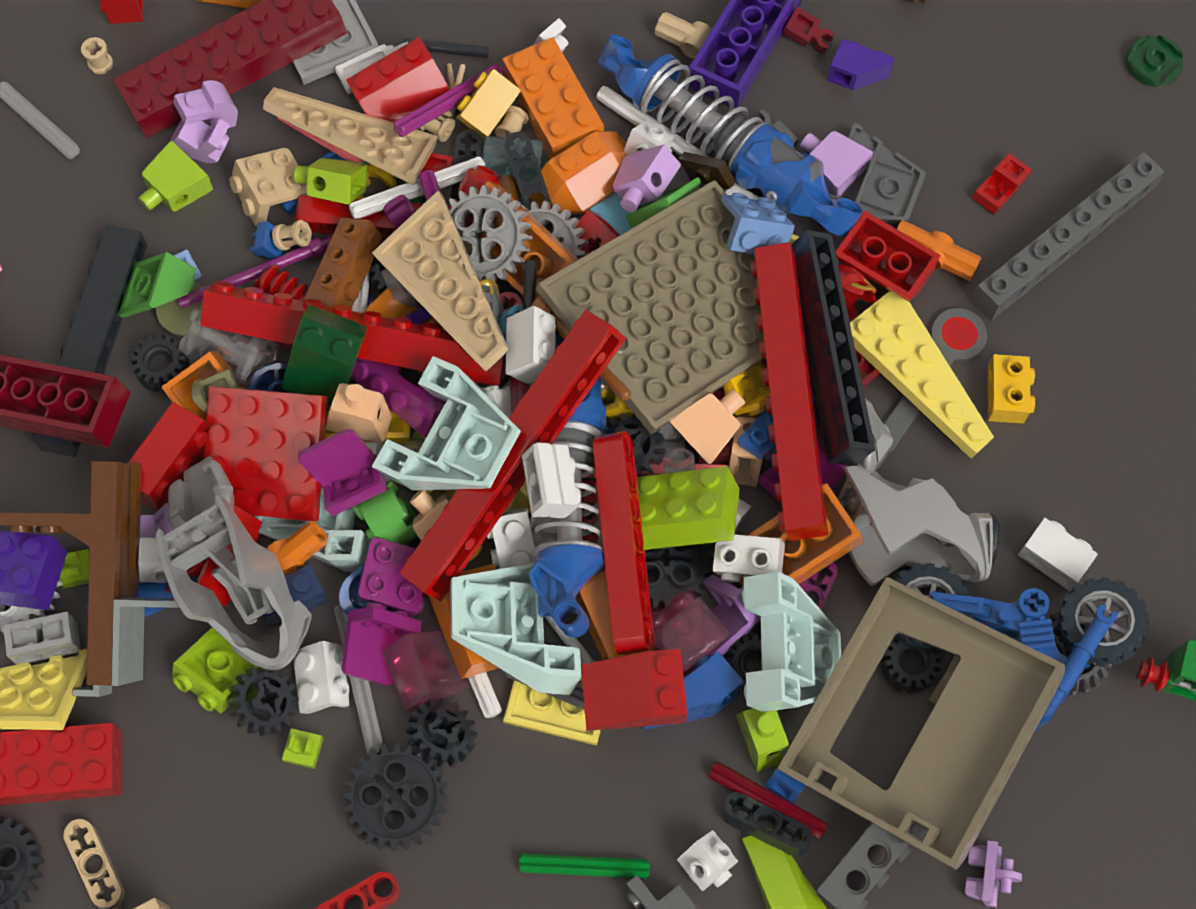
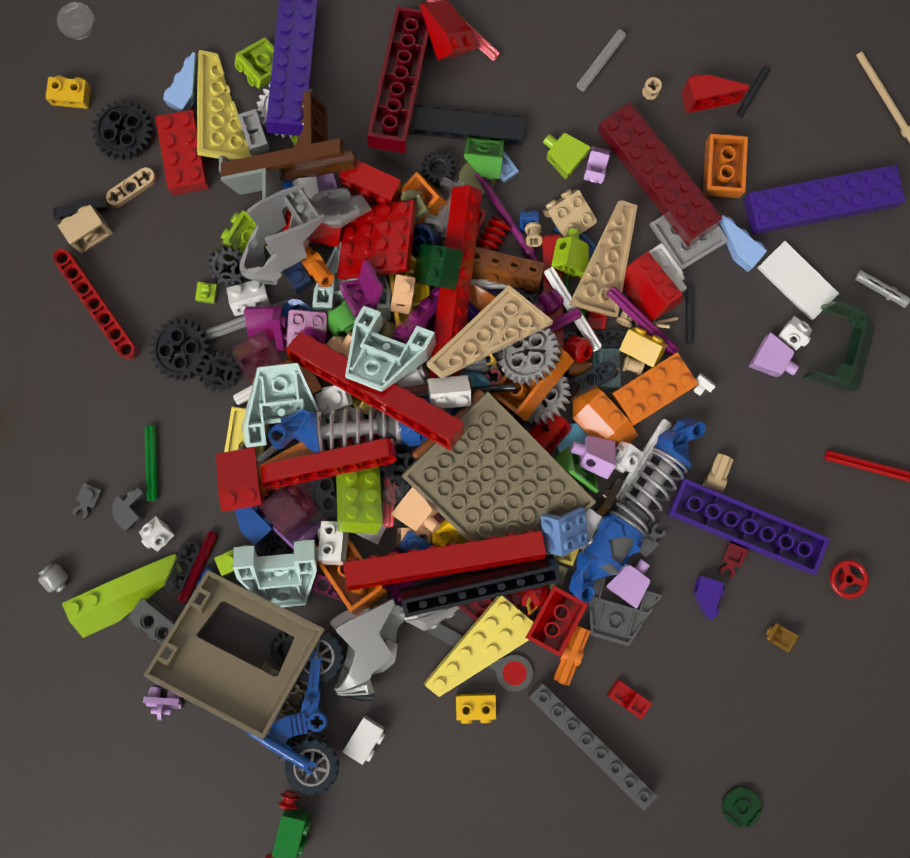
camera: 85 degrees right, 15 degrees up
(207, 104) = (619, 167): lavender brick -> none
(550, 480) = (351, 414): white brick -> none

